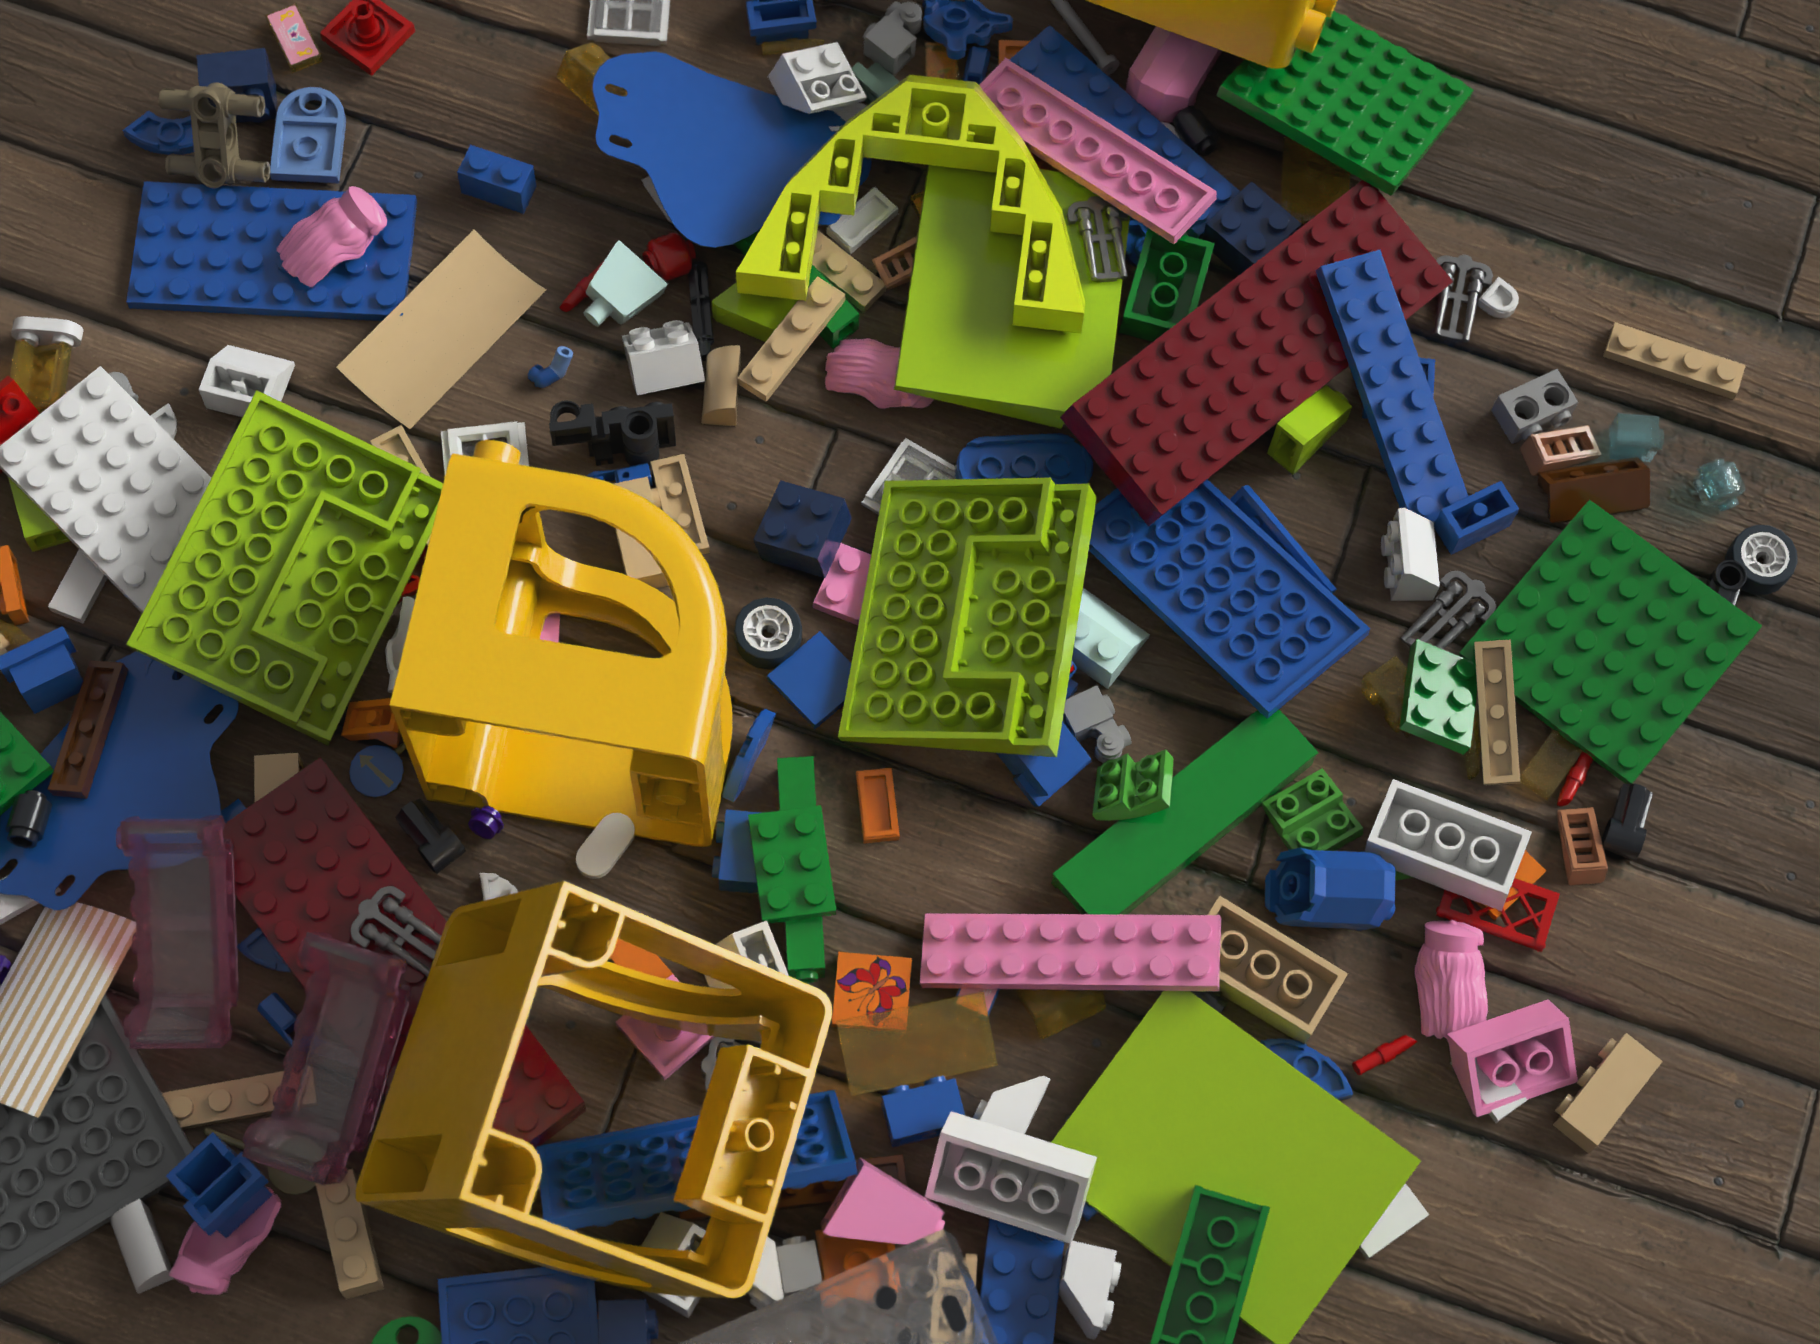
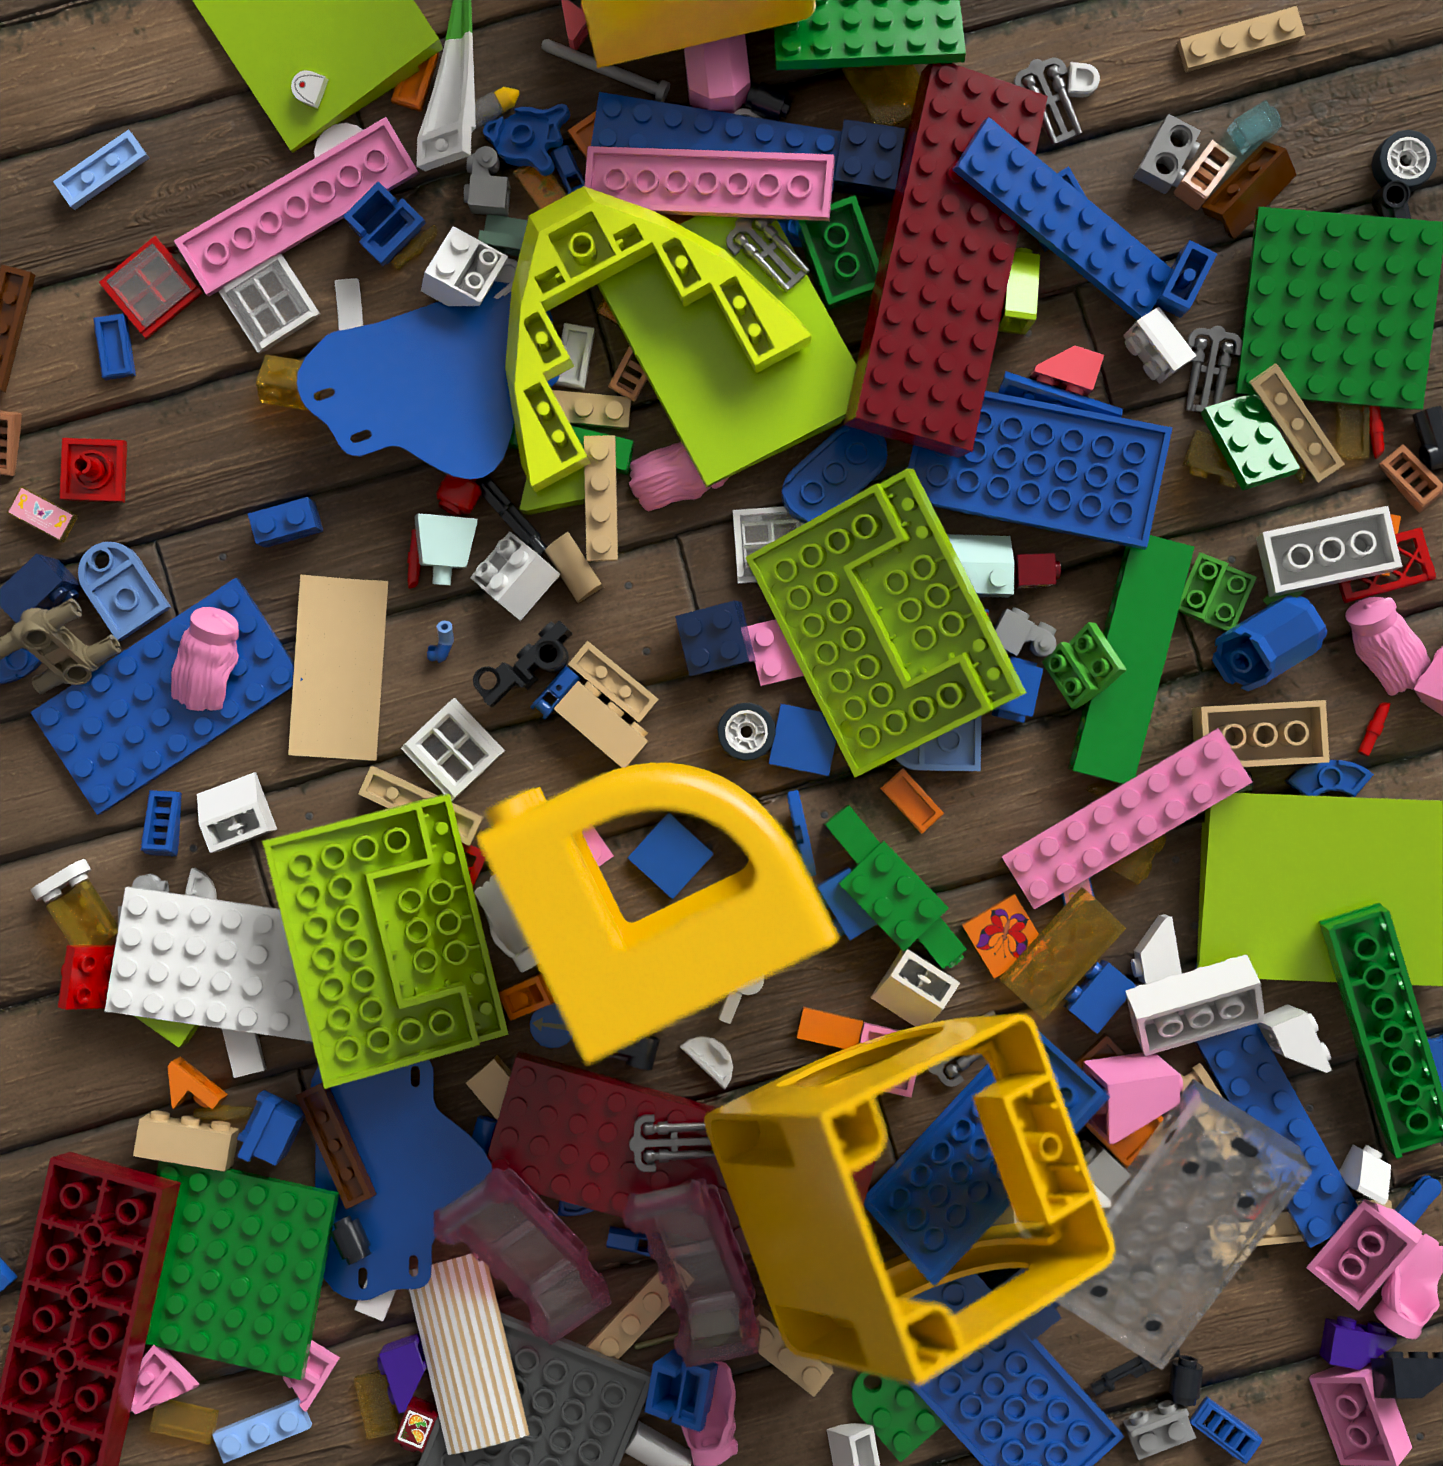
camera: 30 degrees left, 20 degrees up
(165, 369) = (151, 822): none -> blue slope
(557, 865) = (730, 1006): none -> white tile
(701, 48) = (348, 303): none -> white sticker
(947, 776) = (951, 751): none -> medium blue plate
(1150, 677) = (1036, 570): none -> dark red brick
(1312, 524) = (1071, 370): none -> coral slope
(1719, 484) = (1339, 122): clear light blue head -> none

